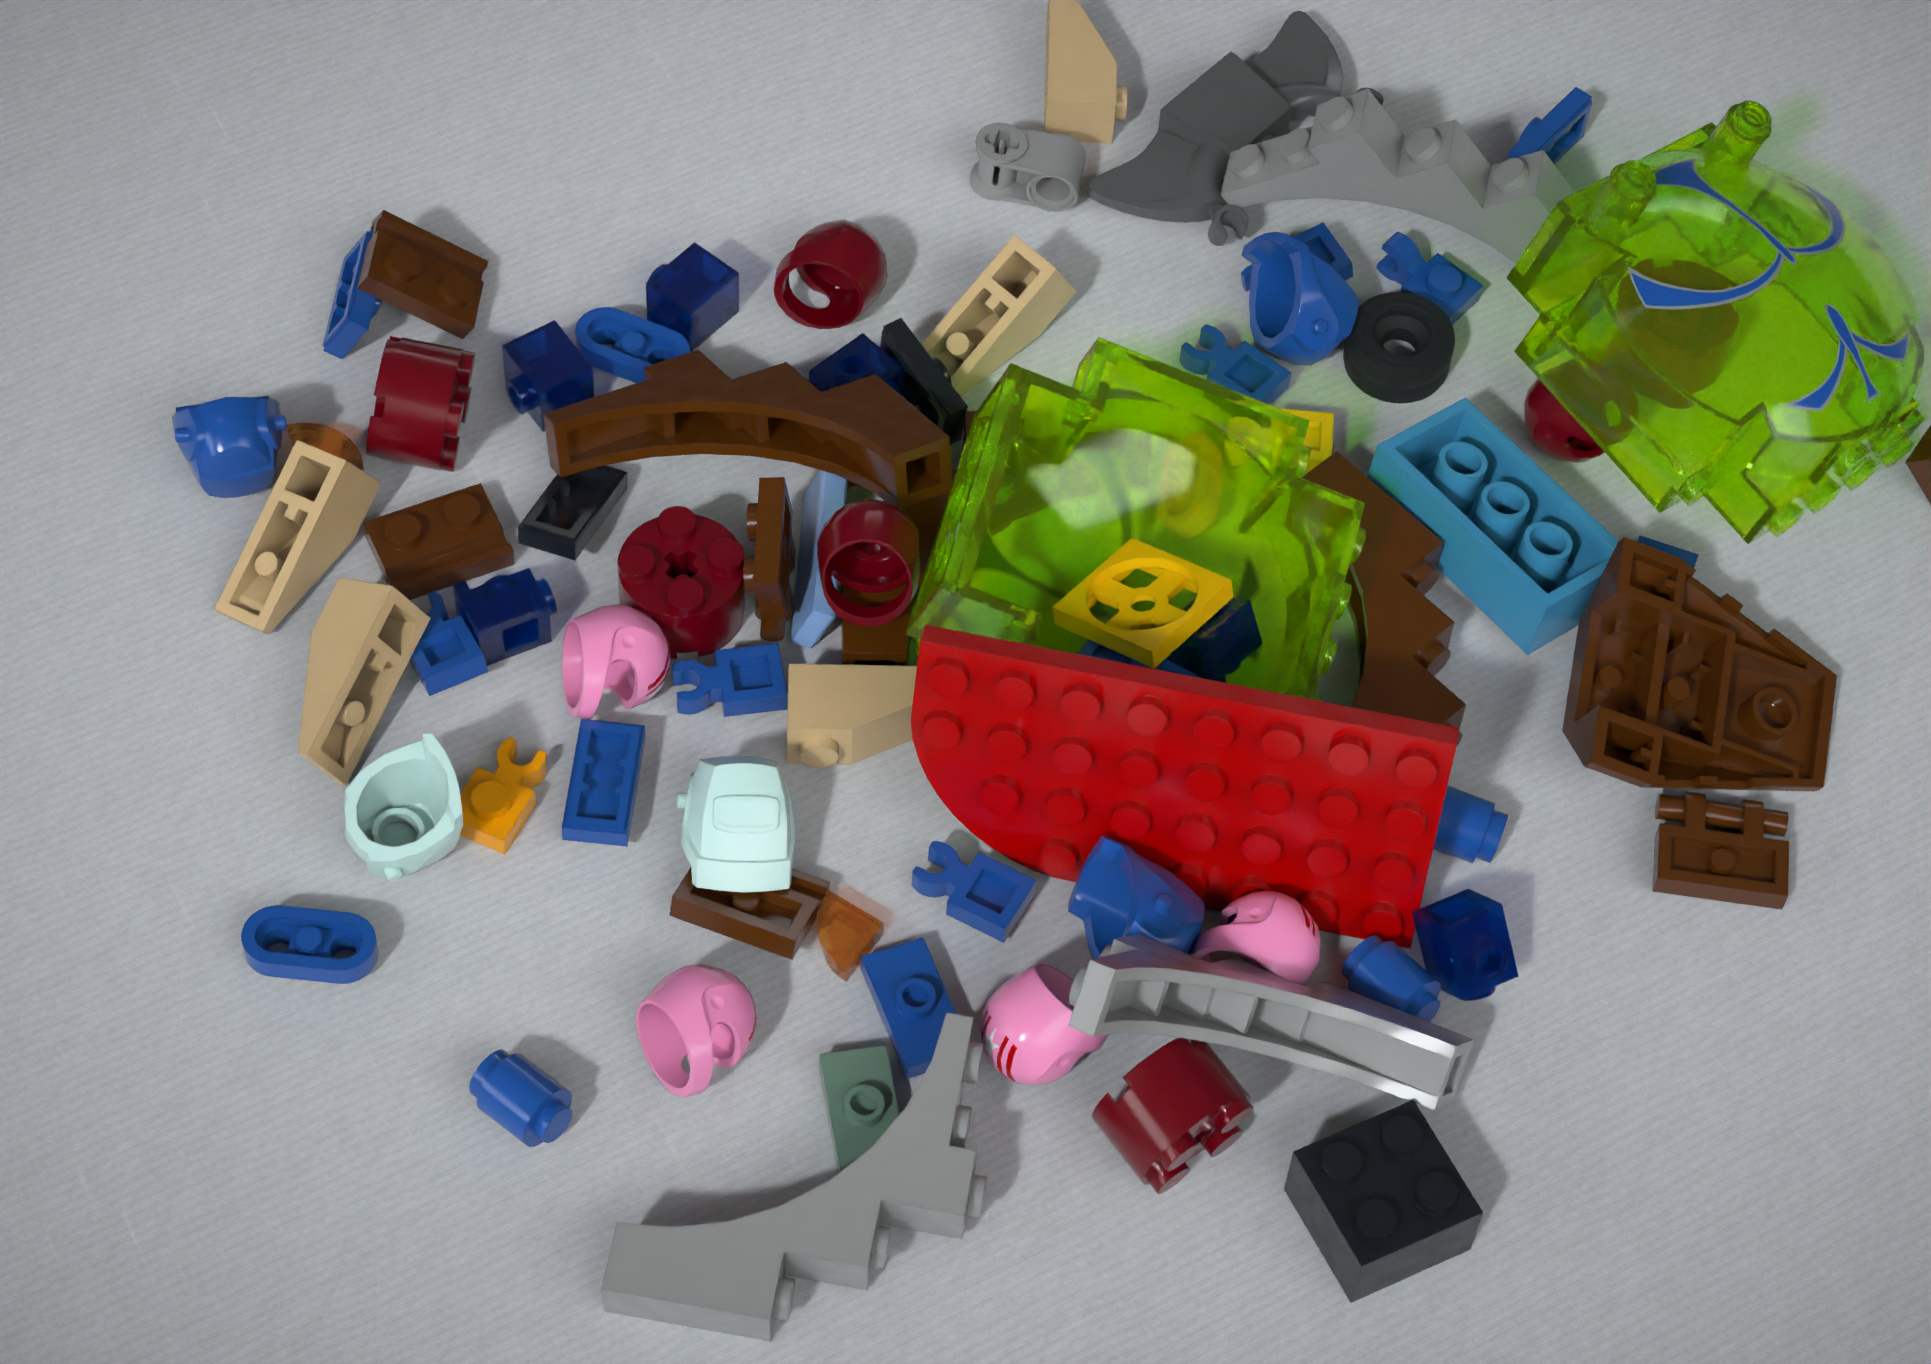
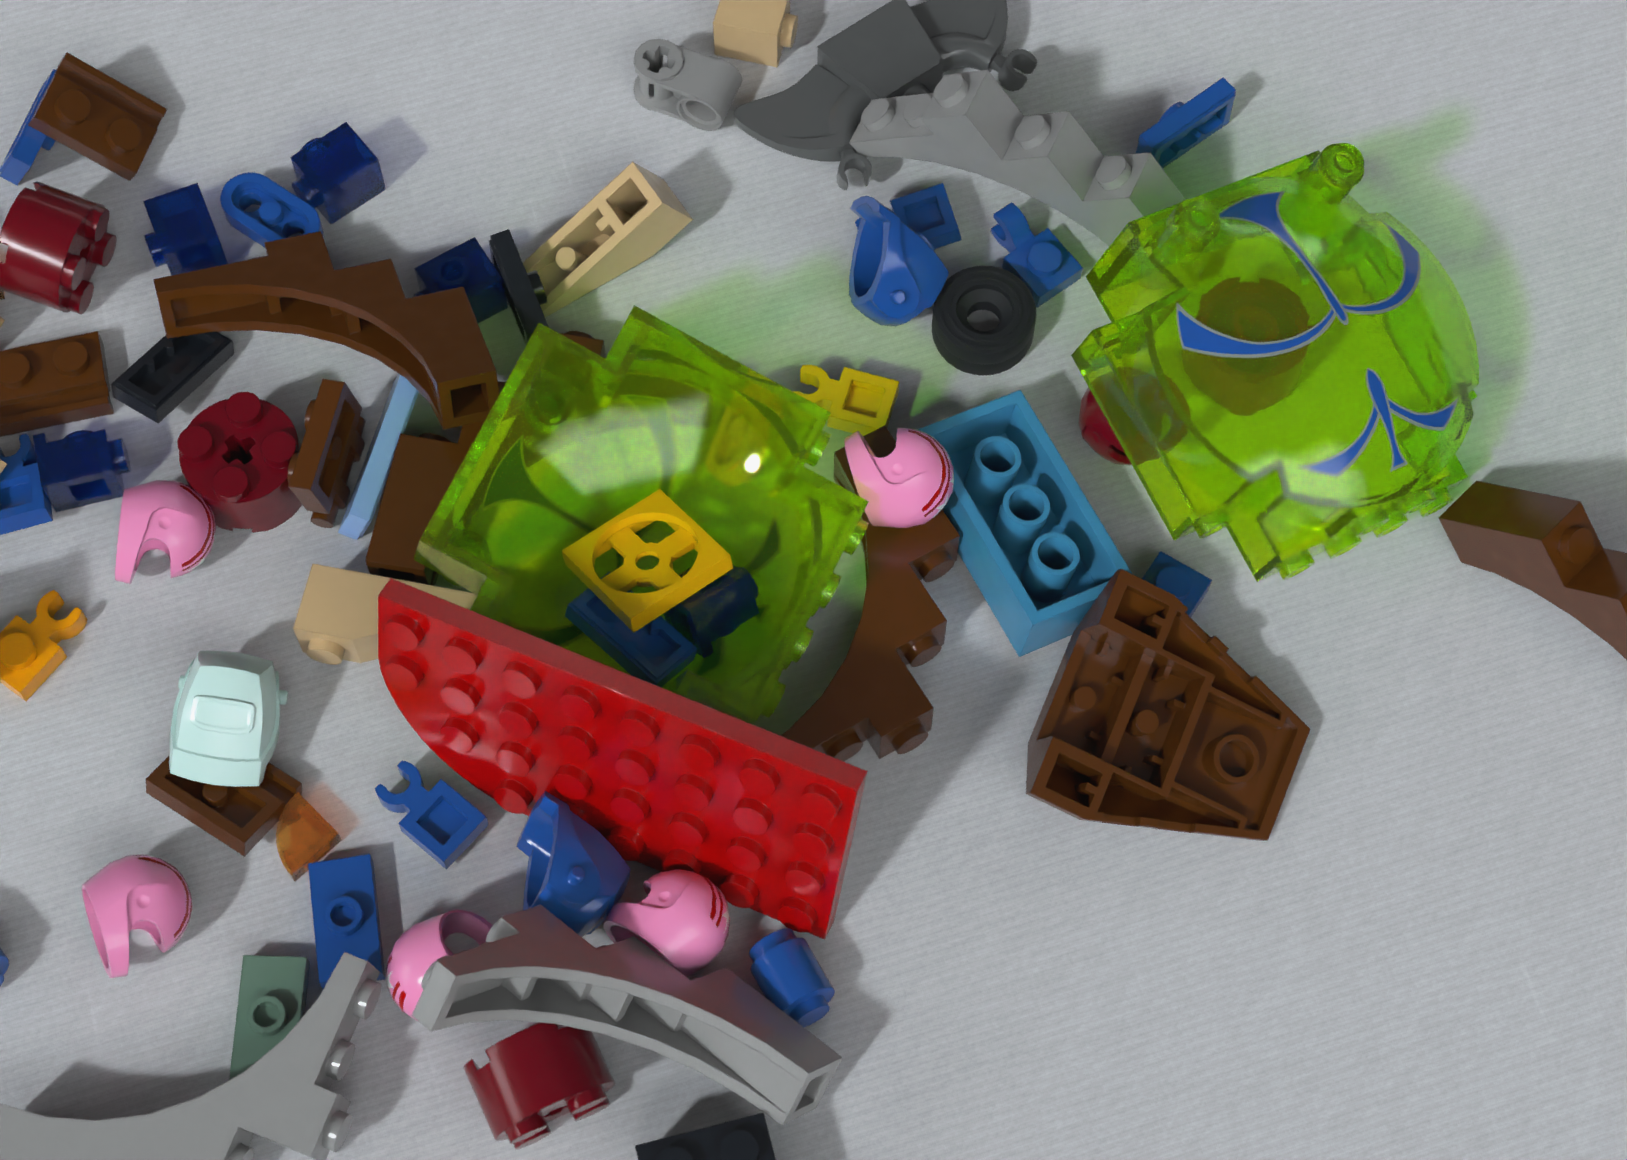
camera: 15 degrees right, 10 degrees up
(603, 782) = (125, 649): blue plate -> none
(742, 680) = (275, 568): blue plate -> none
(828, 257) = (479, 155): dark red helmet -> none
(870, 551) = (405, 464): dark red helmet -> none
(1240, 369) = (823, 329): blue plate -> none
(1392, 484) = (905, 485): none -> bright pink helmet
(1466, 944) = (866, 954): clear blue brick -> none
(1469, 826) = (900, 822): blue brick -> none
(1717, 863) = (1140, 906): reddish brown plate -> none

